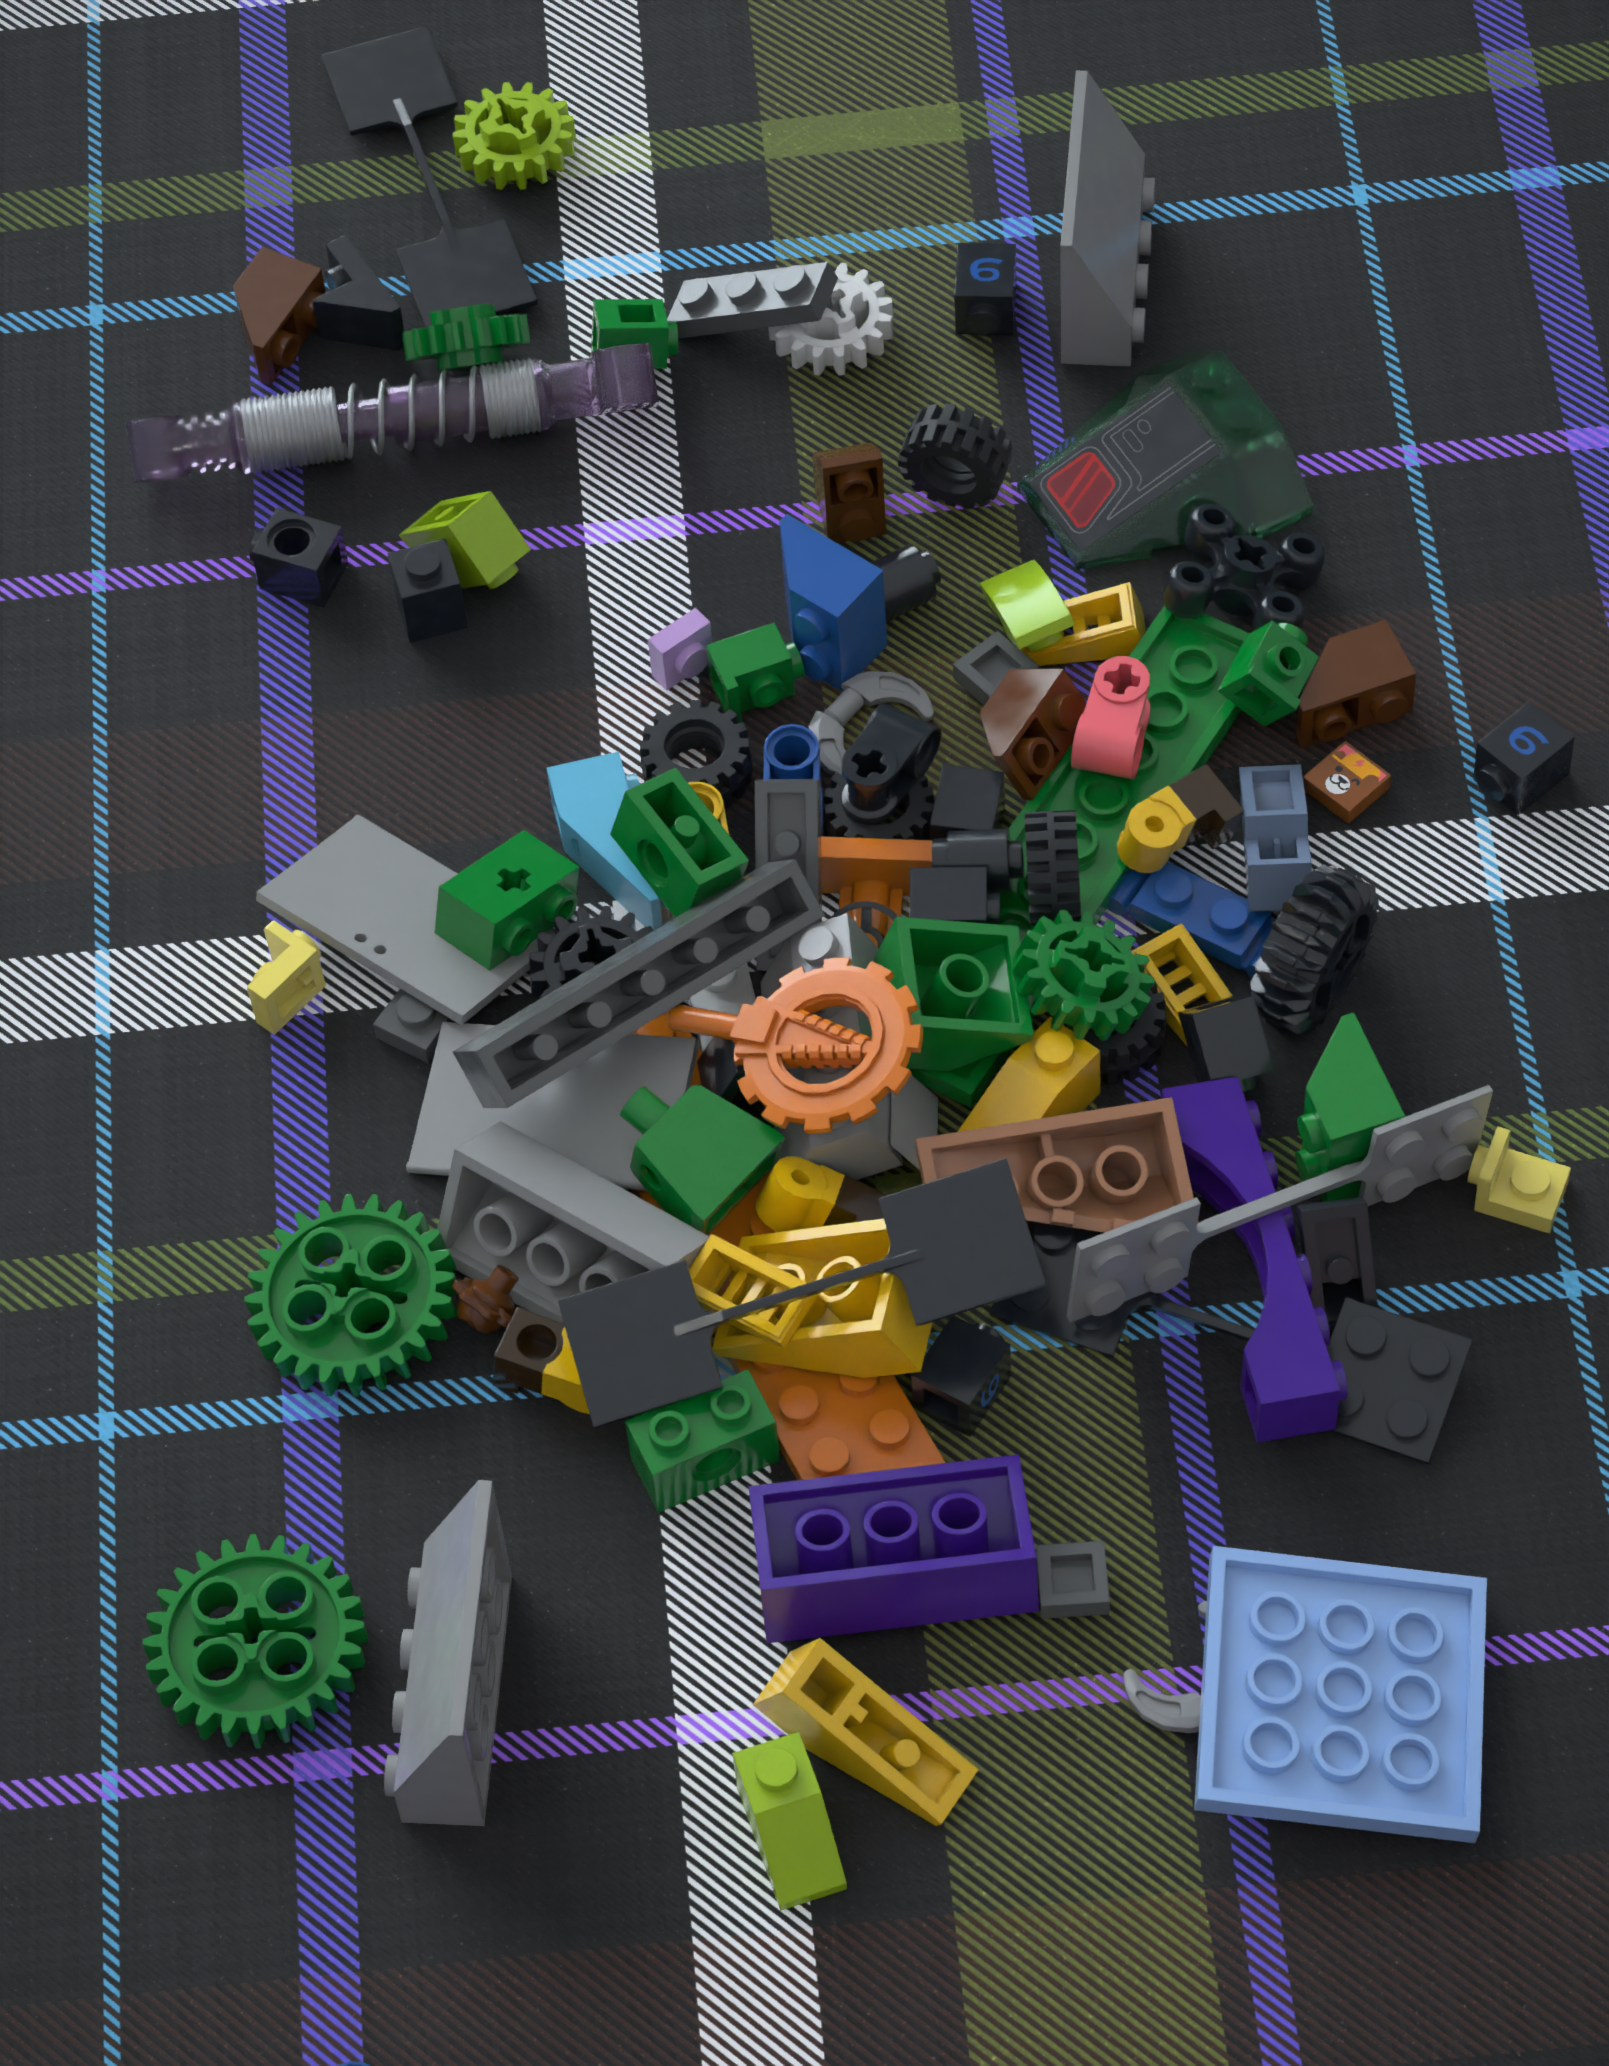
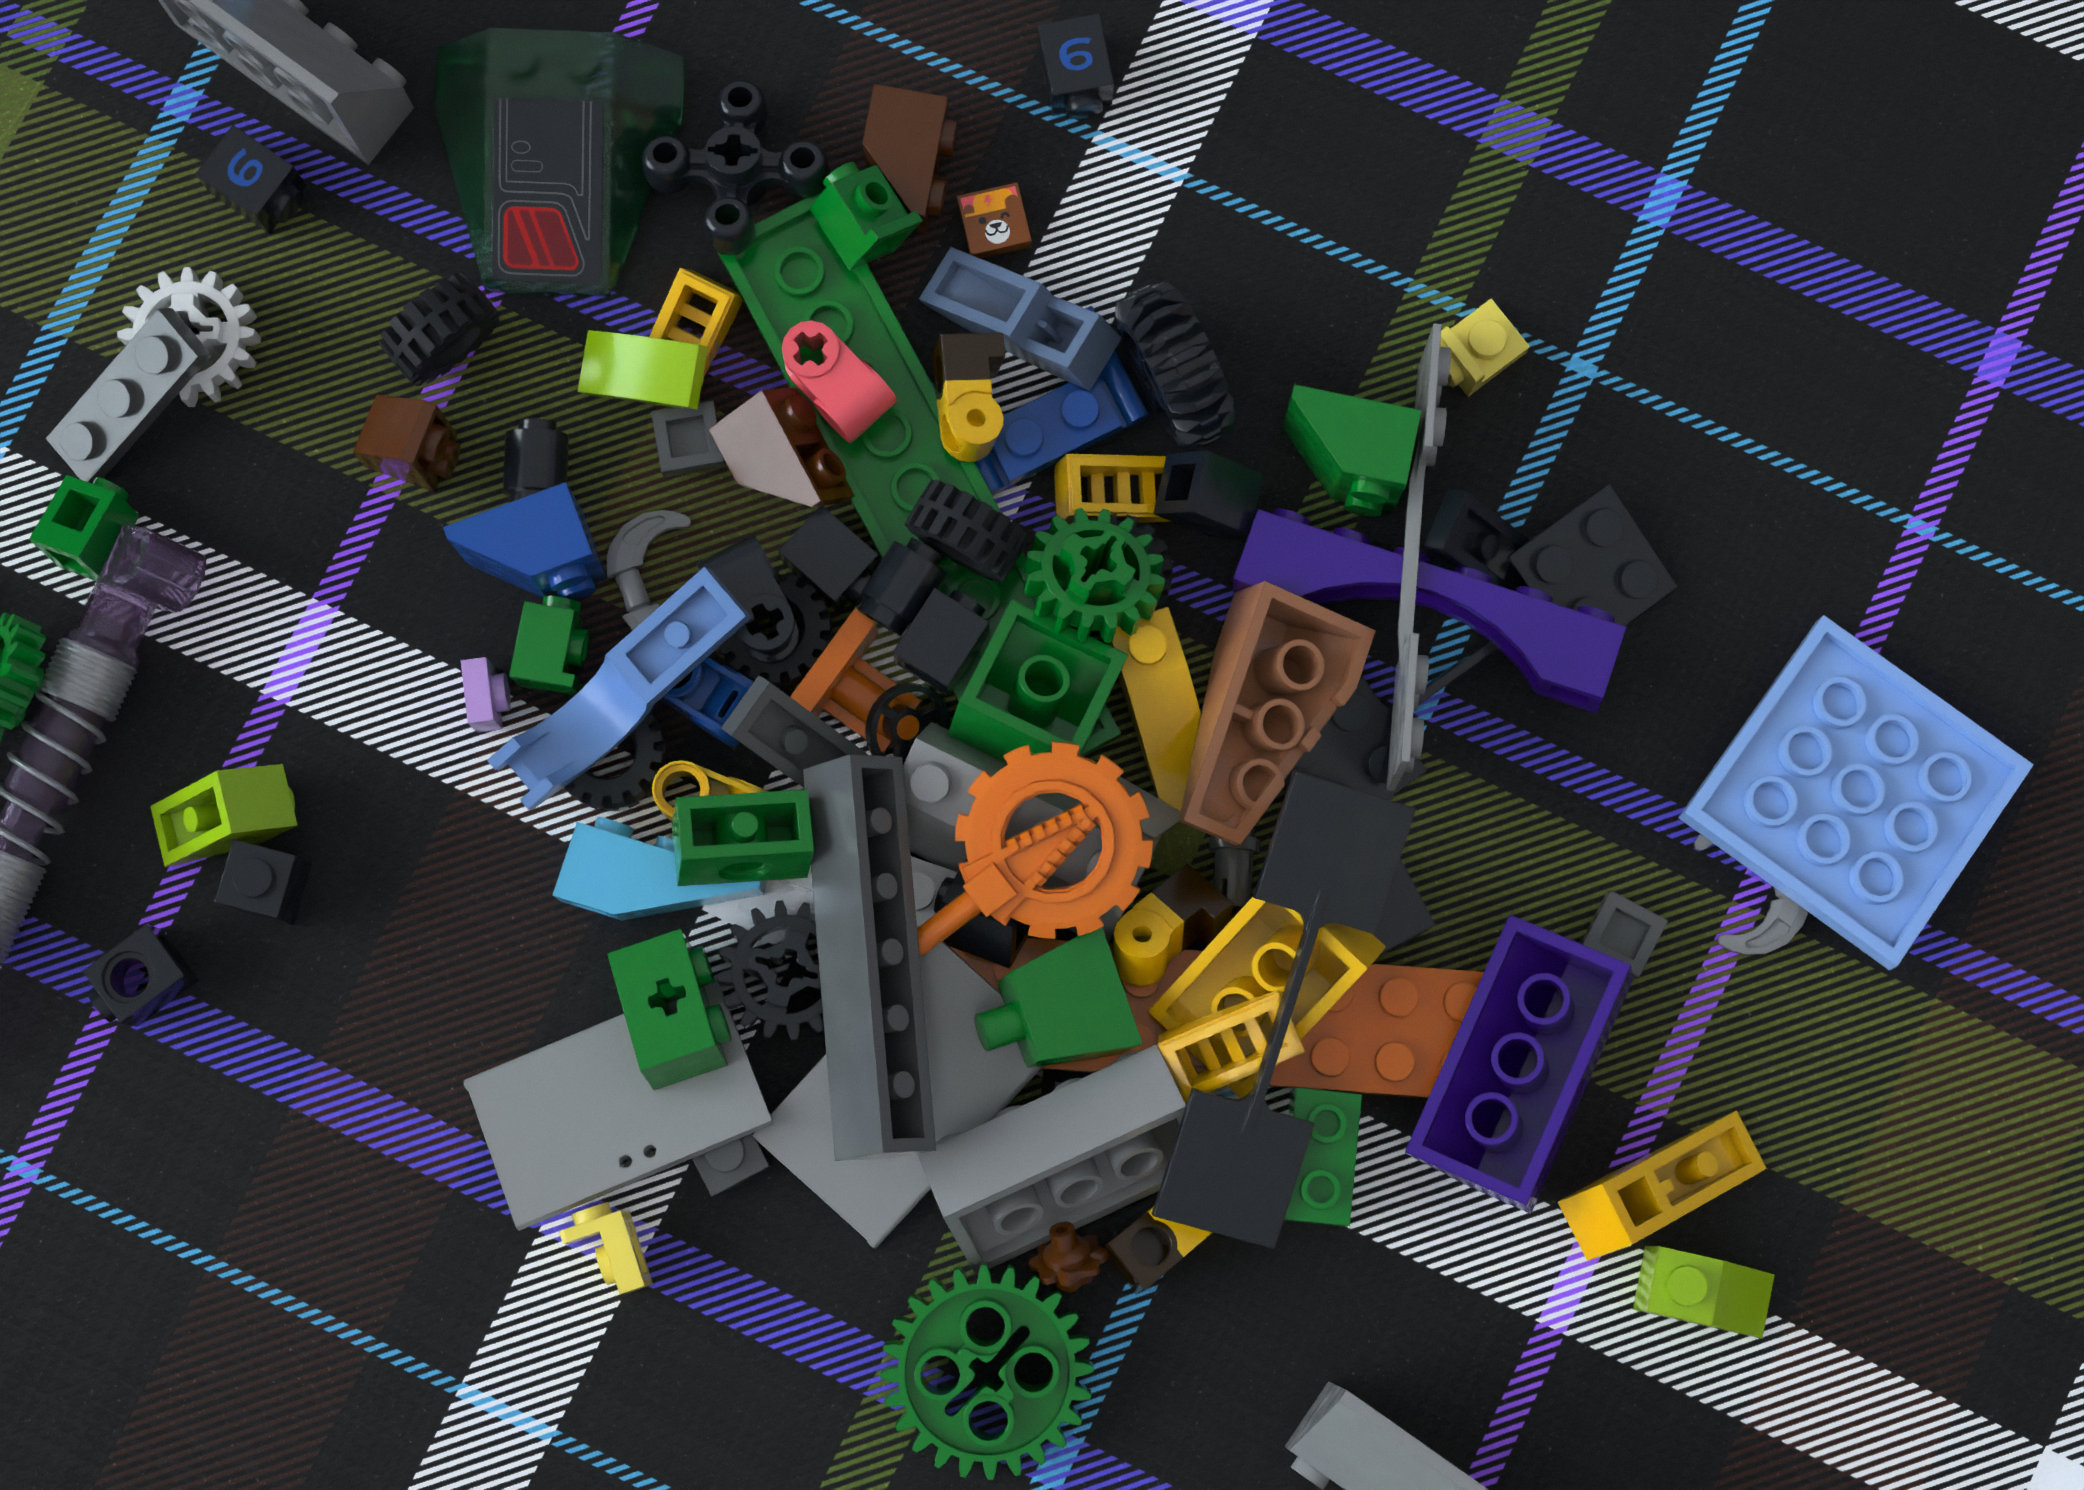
camera: 65 degrees left, 25 degrees up
(773, 709) = (624, 688): none -> medium blue piece

